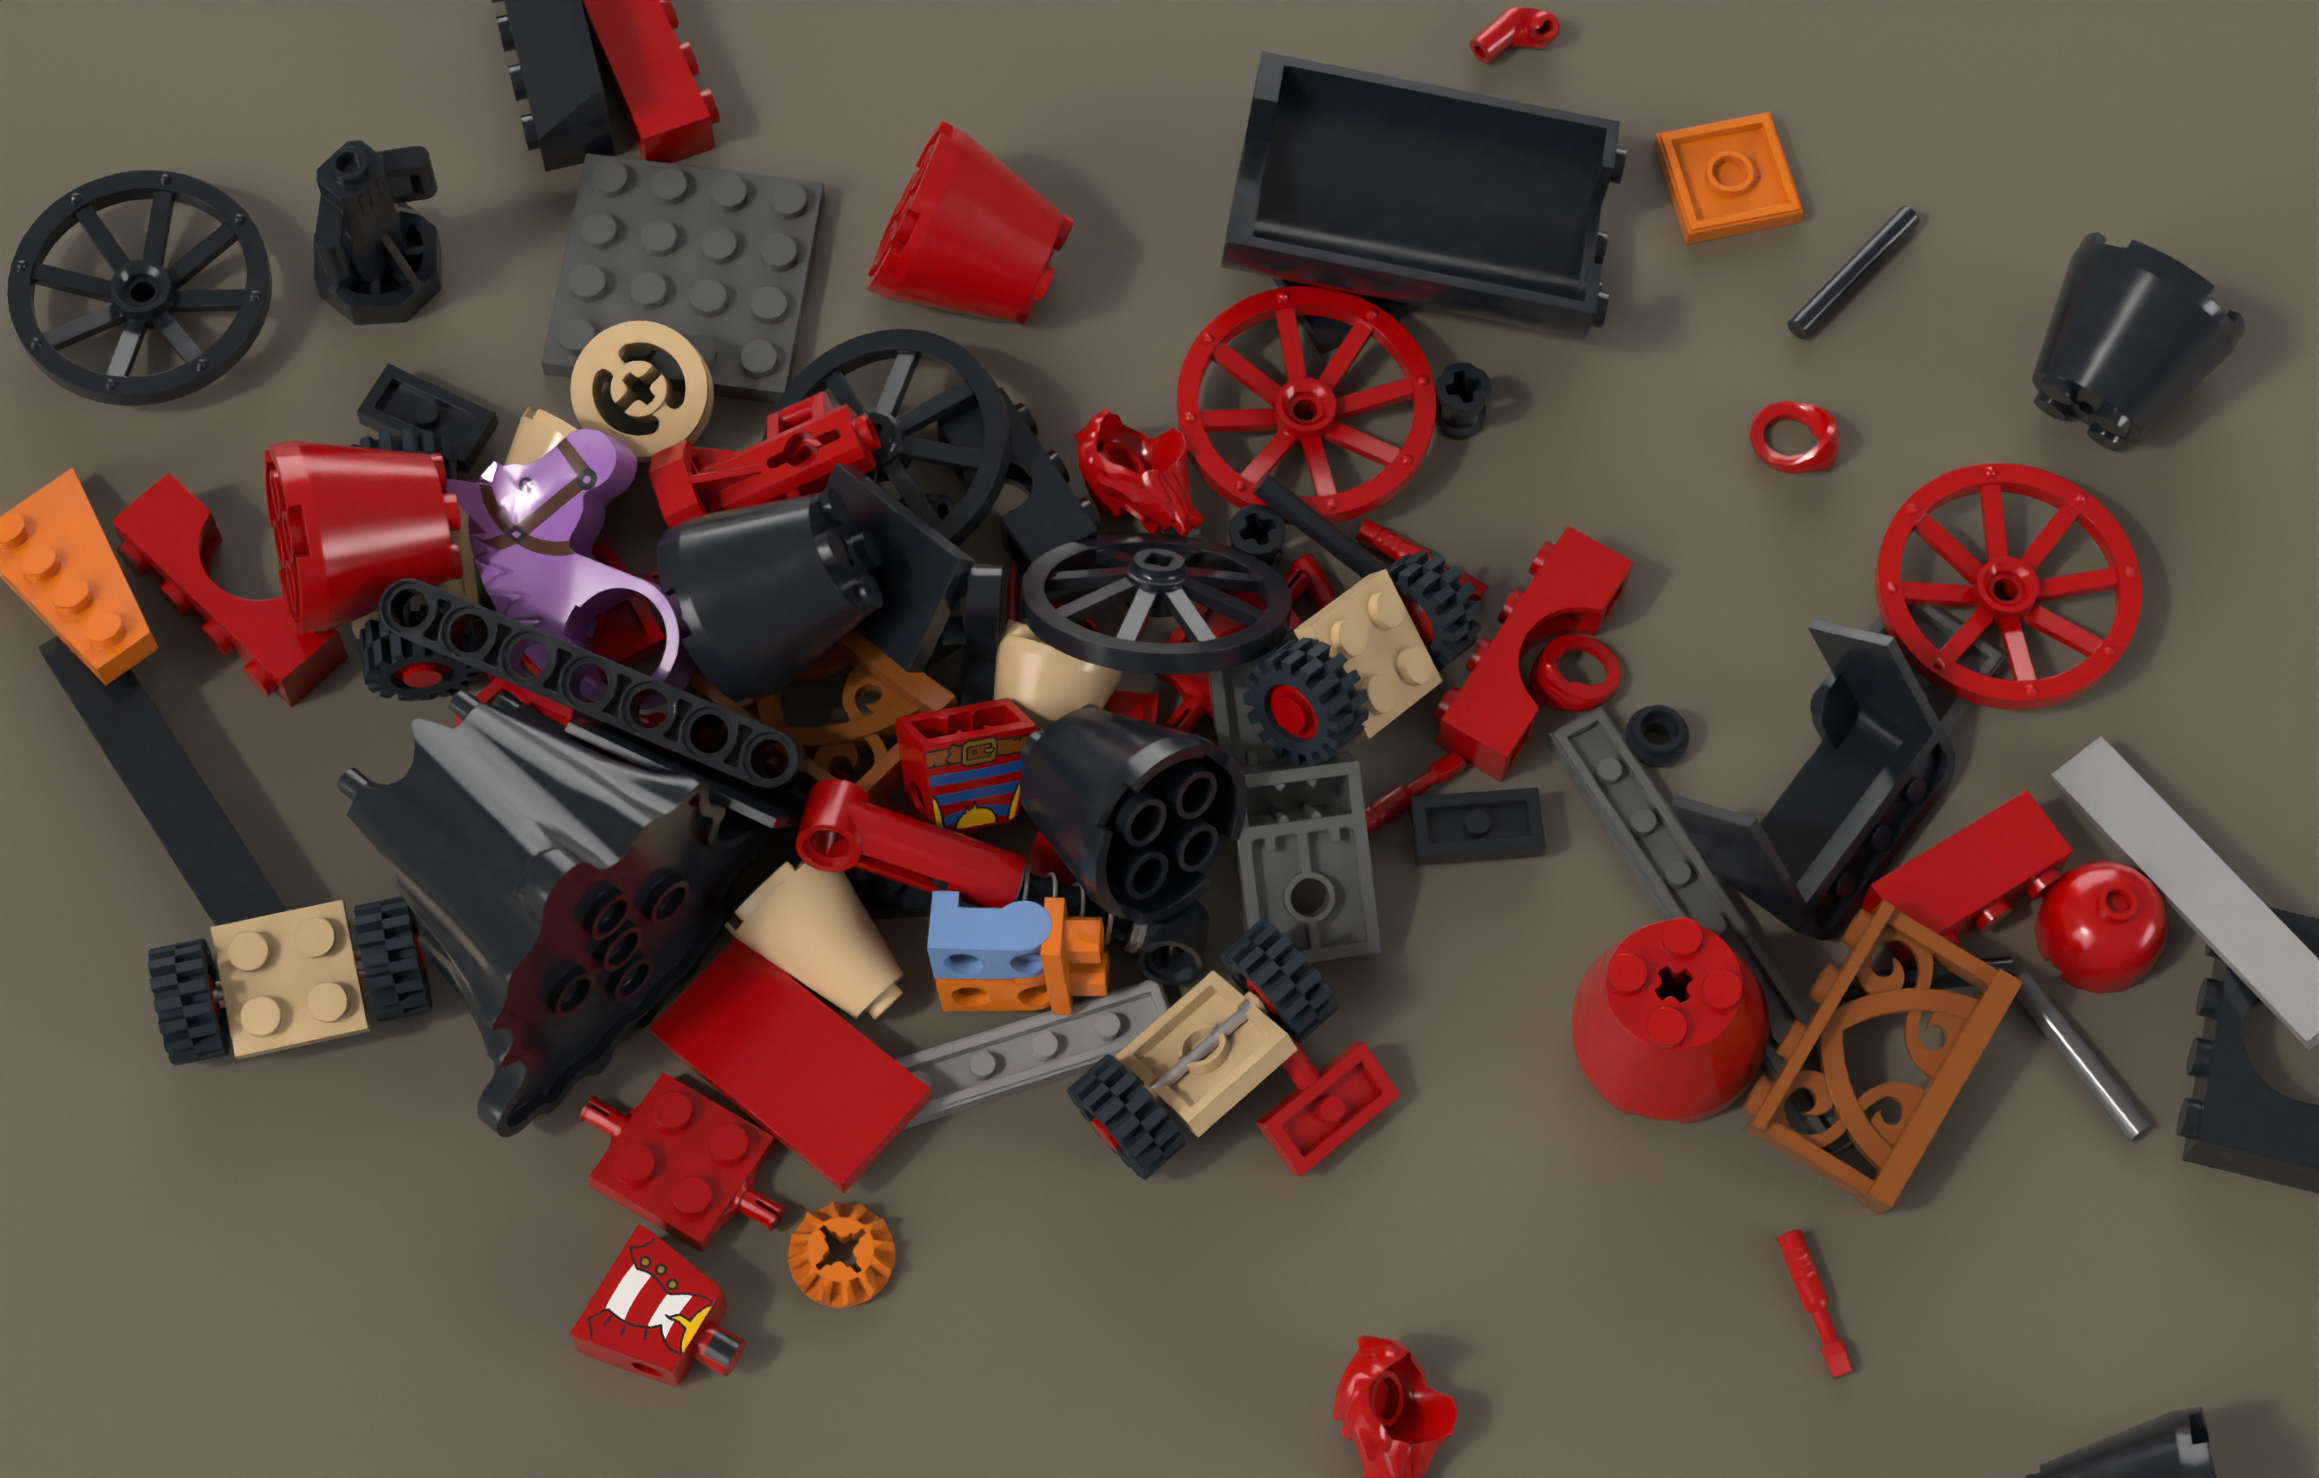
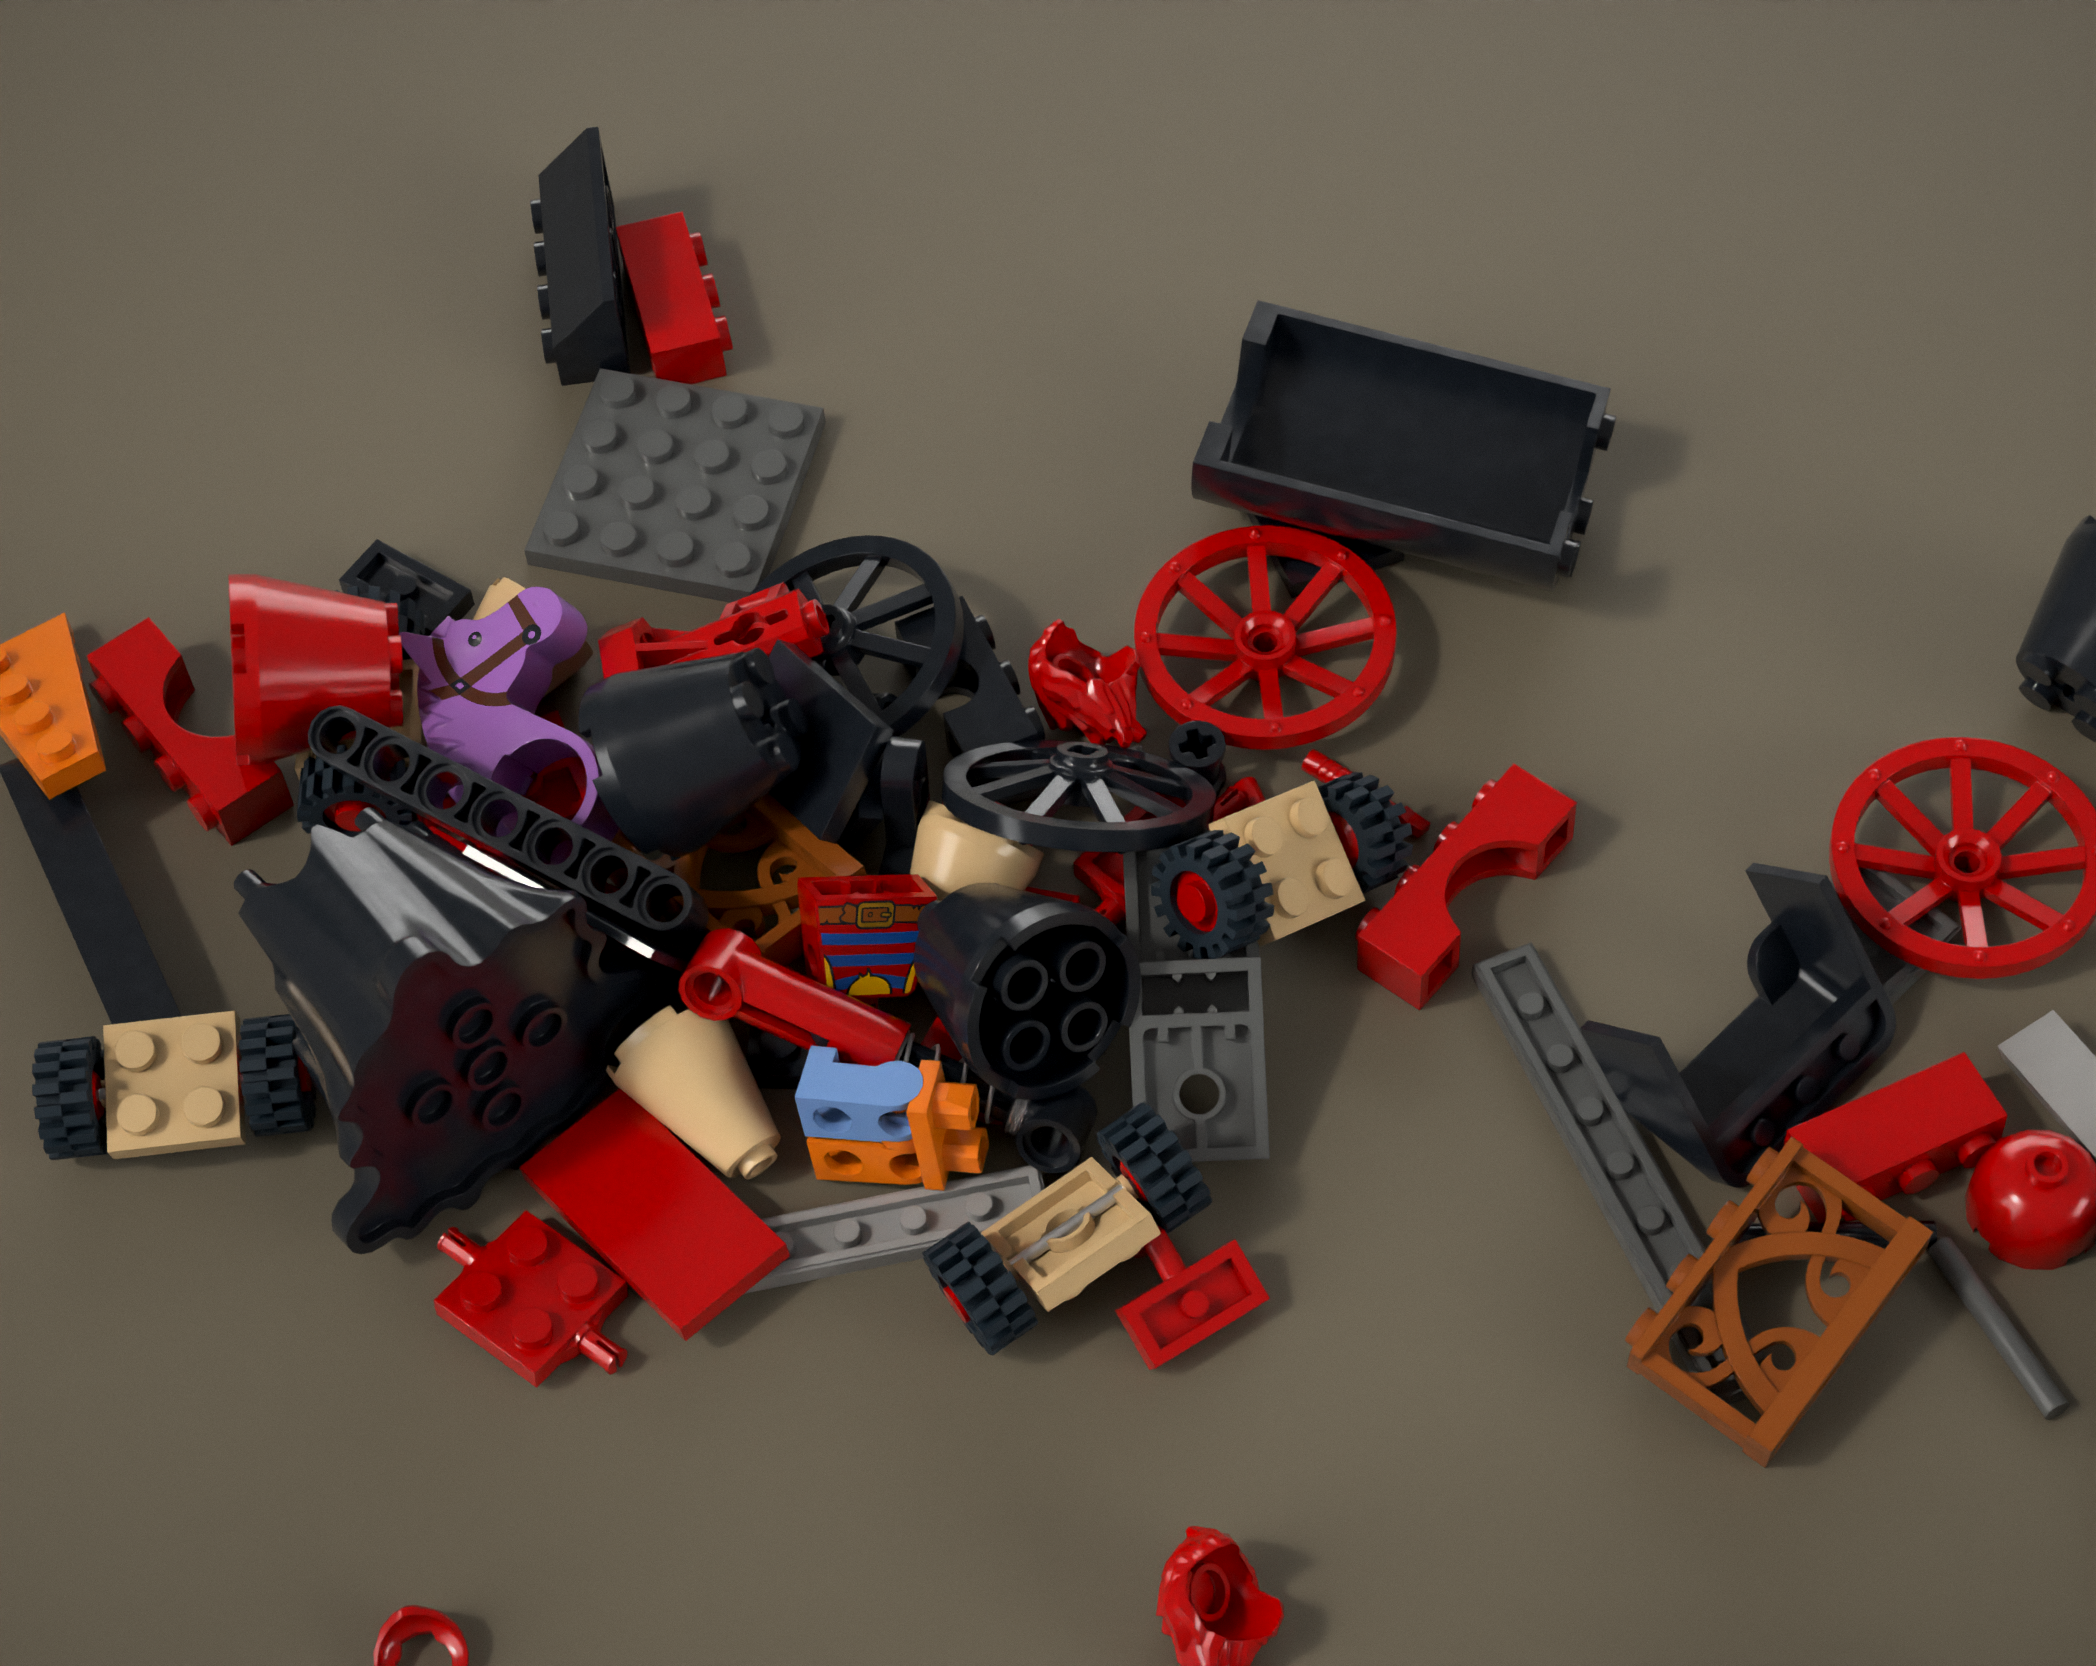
camera: 15 degrees right, 10 degrees down
(136, 280) = (157, 462): black wheel -> none
(367, 232) = (372, 422): black piece -> none
(607, 357) = (588, 550): tan wheel -> none
(657, 1315) = (476, 1441): torso -> none
(836, 1283) = (665, 1429): orange gear -> none
(968, 235) = (949, 455): red cone -> none
(1317, 527) = (1252, 741): black bar -> none
(1398, 798) = (1314, 1014): red piece -> none
(1461, 400) = (1423, 649): black bush -> none
(1476, 826) = (1386, 1046): black plate -> none
(1515, 28) = (1526, 313): red arm -> none
(1555, 692) = (1485, 926): red piece -> none
(1662, 720) = (1590, 961): black plate -> none
(1670, 1023) = (1560, 1245): red cone -> none
(1728, 178) = (1726, 462): orange tile -> none
(1814, 1300) = (1683, 1545): red piece -> none
(1821, 425) = (1786, 724): red piece -> none
(1853, 272) = (1844, 556): black bar -> none

